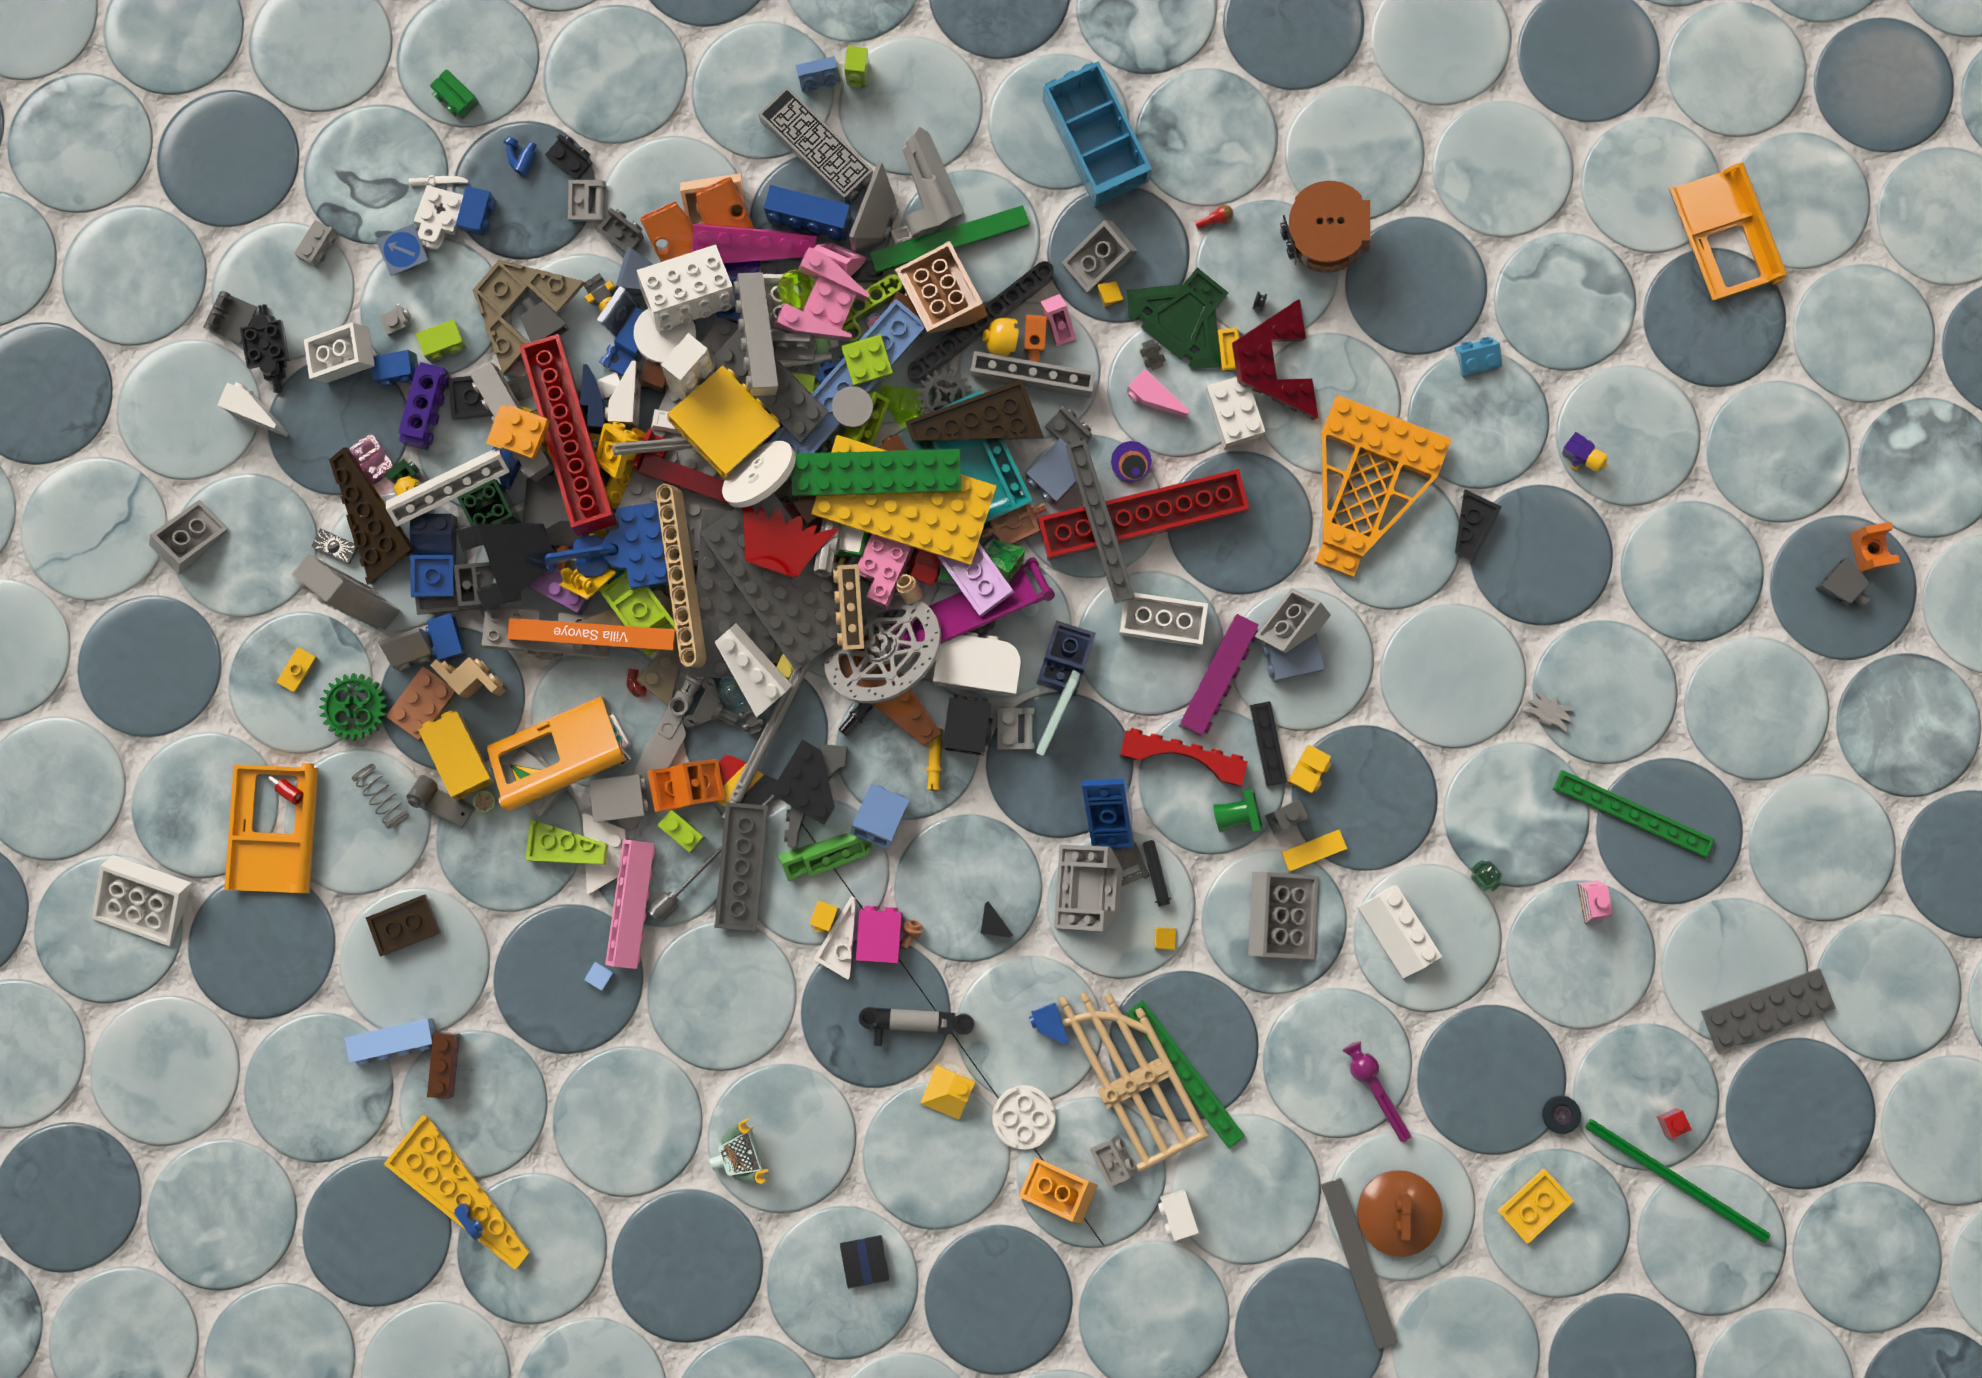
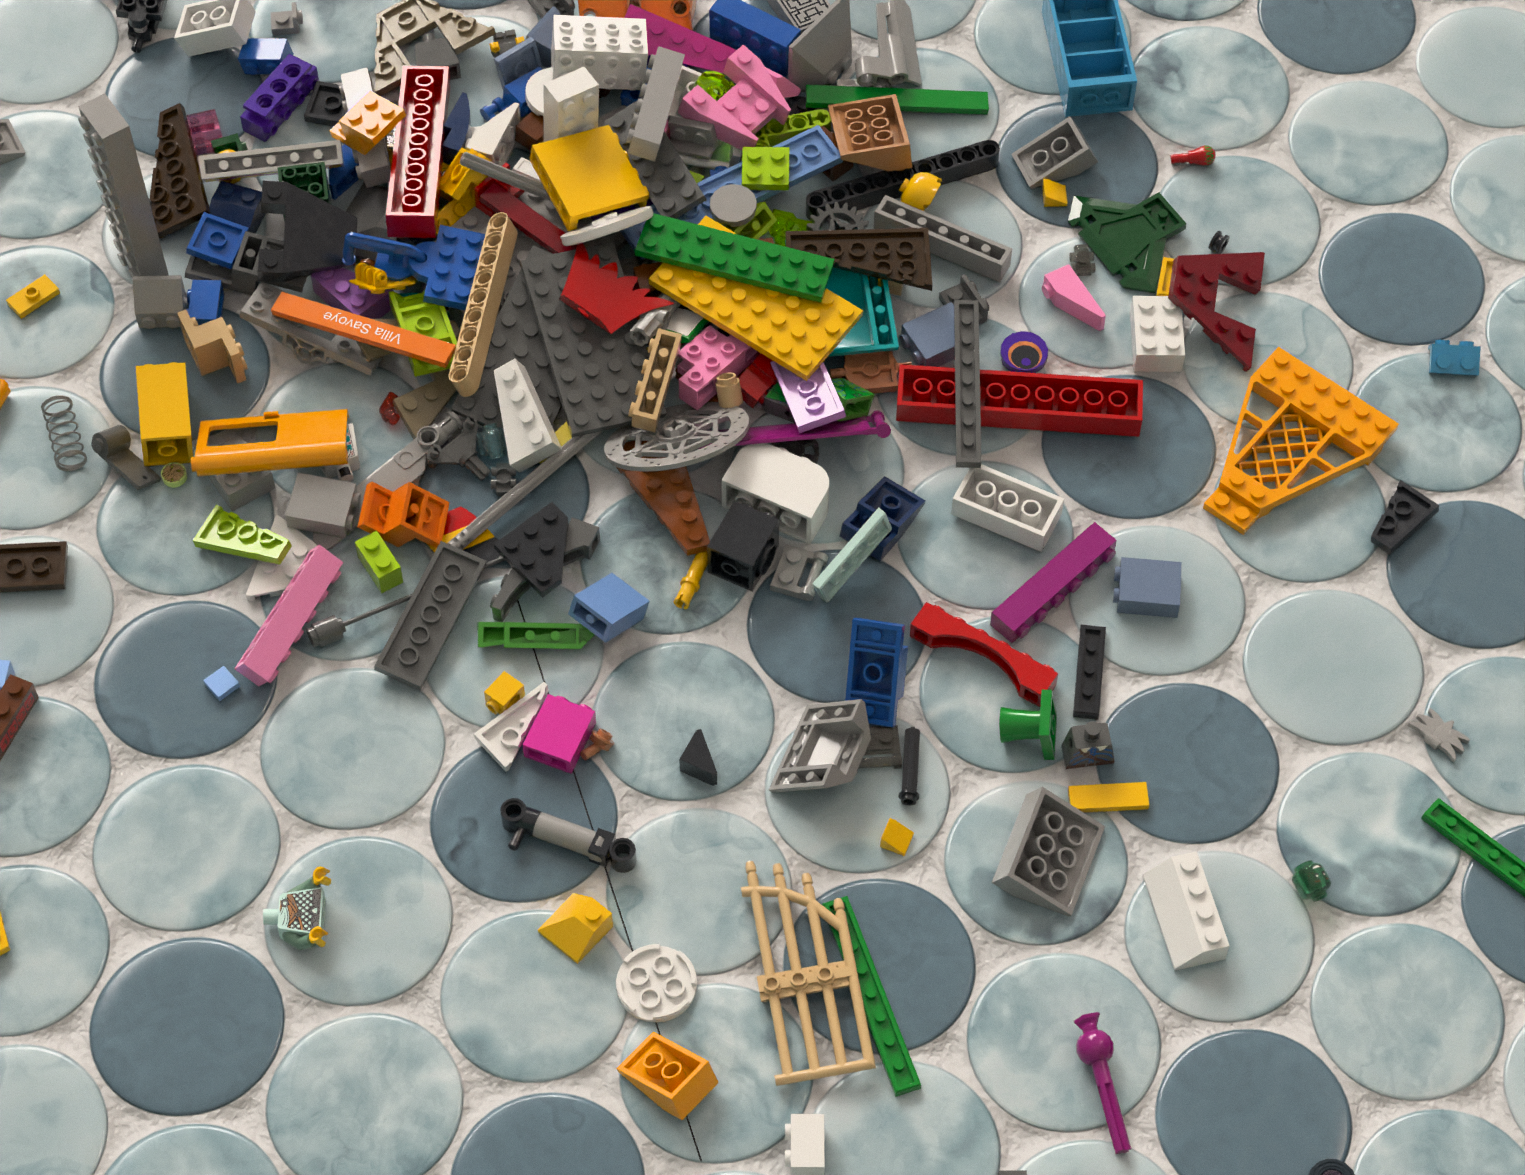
camera: 20 degrees right, 25 degrees down
(241, 403) = (98, 50): white slope -> none
(334, 707) = (67, 336): green gear -> none
(421, 702) = (156, 350): nougat plate -> none
(441, 340) = (324, 47): lime piece -> none
(855, 717) = (621, 508): black axle -> none
(864, 1261) = (400, 1083): black slope -> none
(1035, 328) = (959, 200): orange torso -> none
(1049, 1023) = (725, 884): blue slope -> none
(1058, 320) = (989, 201): bright pink slope -> none
(1114, 1161) = (748, 1061): light grey bracket -> none
(1293, 621) = (1163, 541): light grey slope -> none
(1309, 769) = (1127, 712): yellow piece -> none
(1327, 227) = (1315, 183): dark orange piece -> none
(1594, 901) = (1439, 941): bright pink torso -> none

